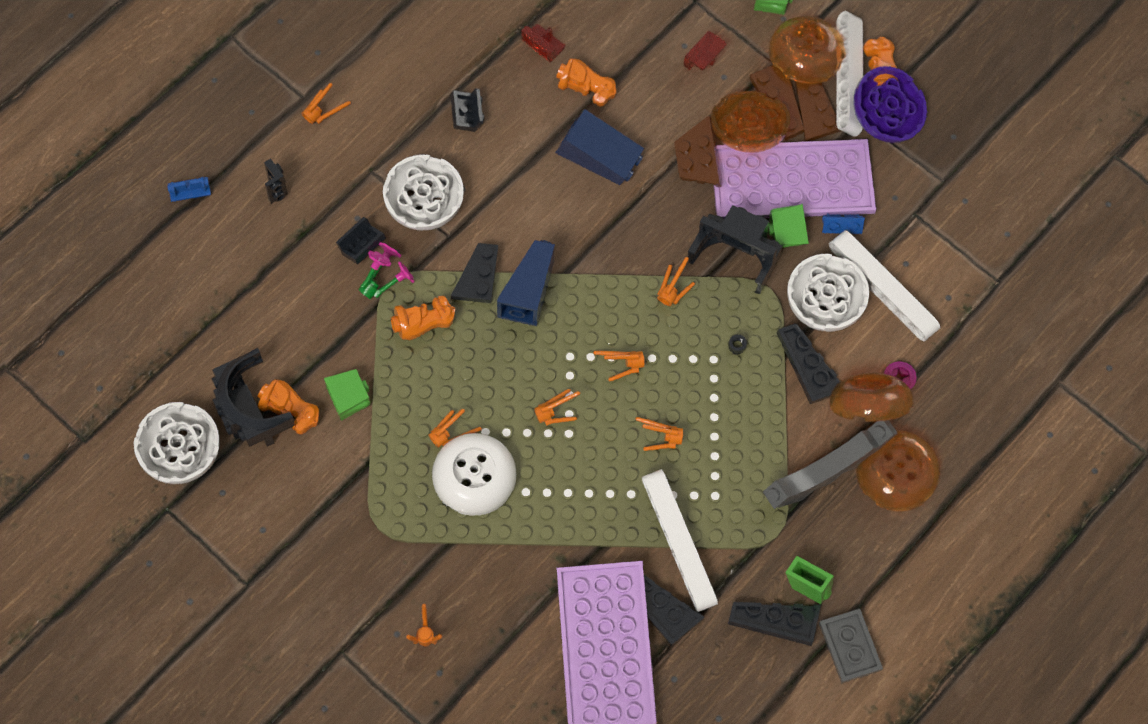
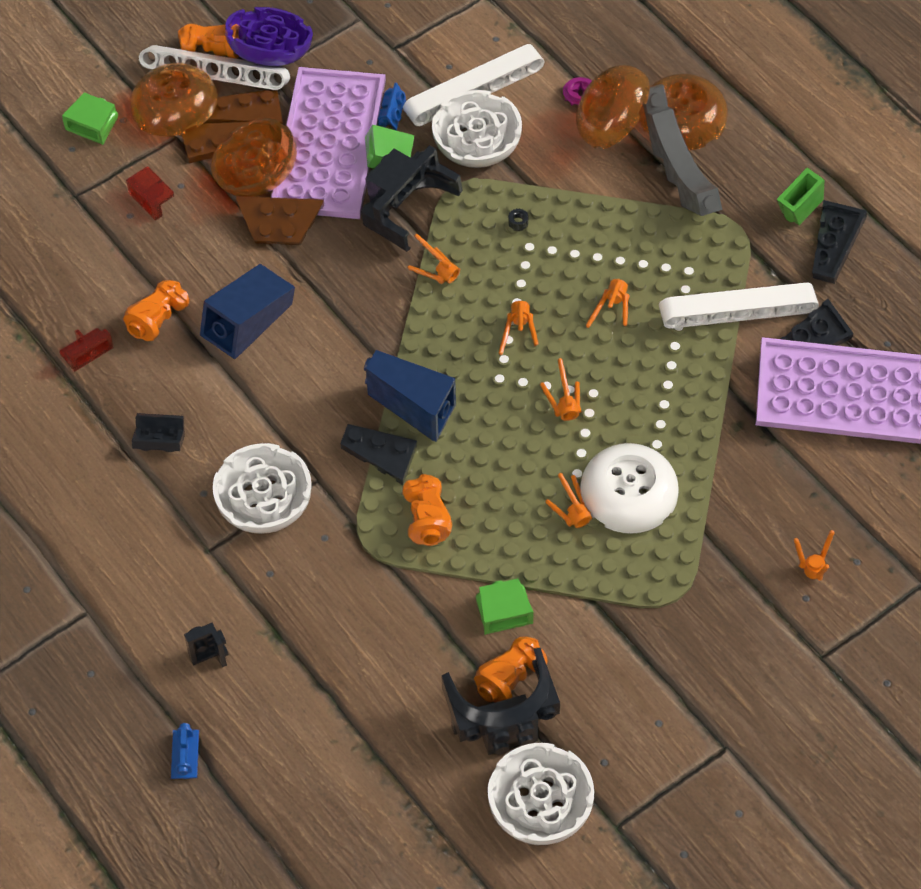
camera: 75 degrees left, 10 degrees down
(313, 111) = (115, 599): orange plant -> none
(360, 240) = (308, 567): black bracket -> none
(369, 286) = (370, 565): plant -> none
(808, 365) = (564, 162): black wing -> none
(850, 646) = (871, 183): dark grey plate -> none

